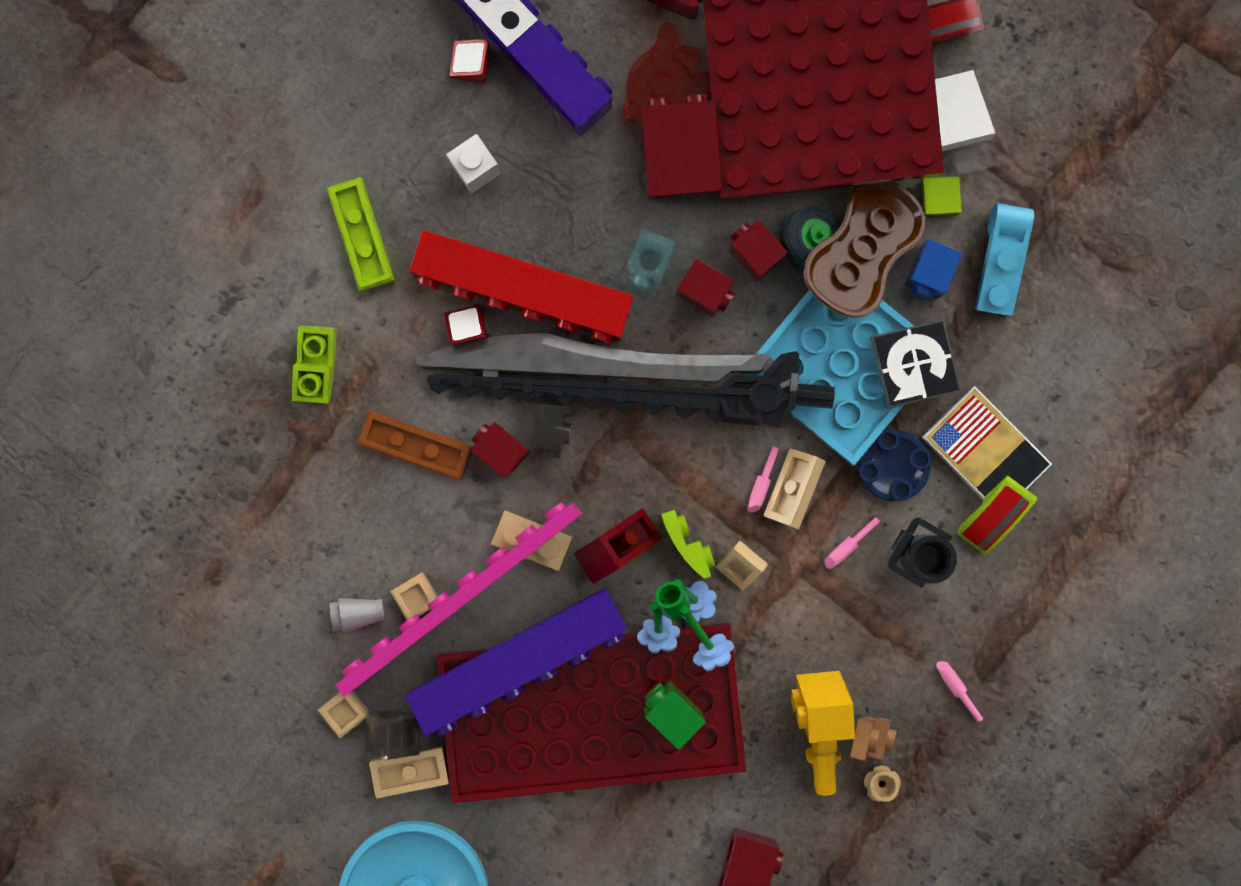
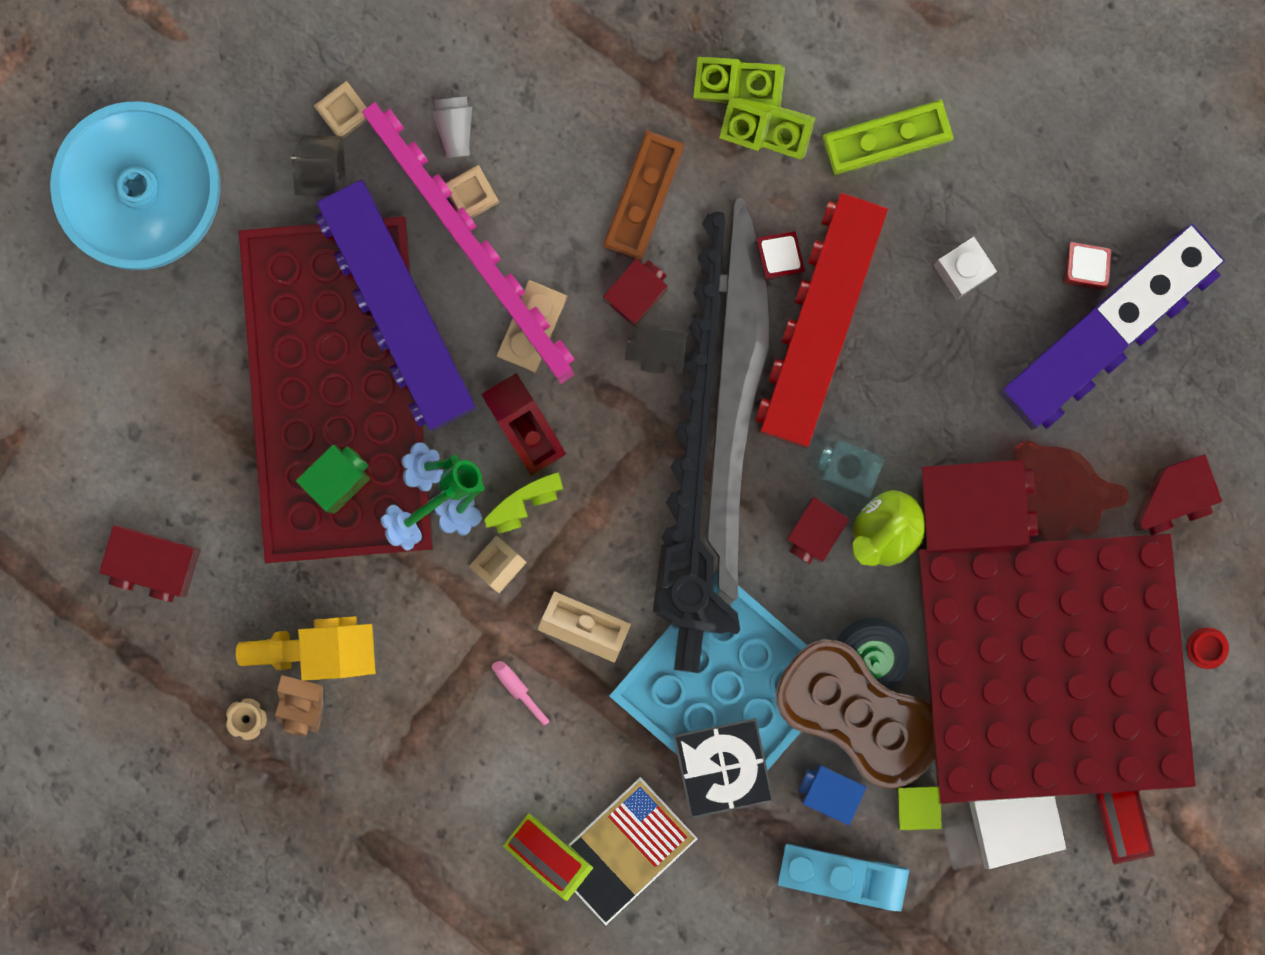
camera: 90 degrees right, 0 degrees up
(352, 338) = (767, 126): none -> lime slope
(410, 773) = (274, 183): tan plate -> none
(702, 226) = (888, 529): none -> lime piece
(756, 249) = (860, 591): dark red brick -> none
(762, 483) = (590, 591): bright pink piece -> none
(895, 466) = (607, 744): dark blue dish -> none
(923, 556) = (502, 773): black piece -> none
(957, 687) = (352, 809): bright pink piece -> none

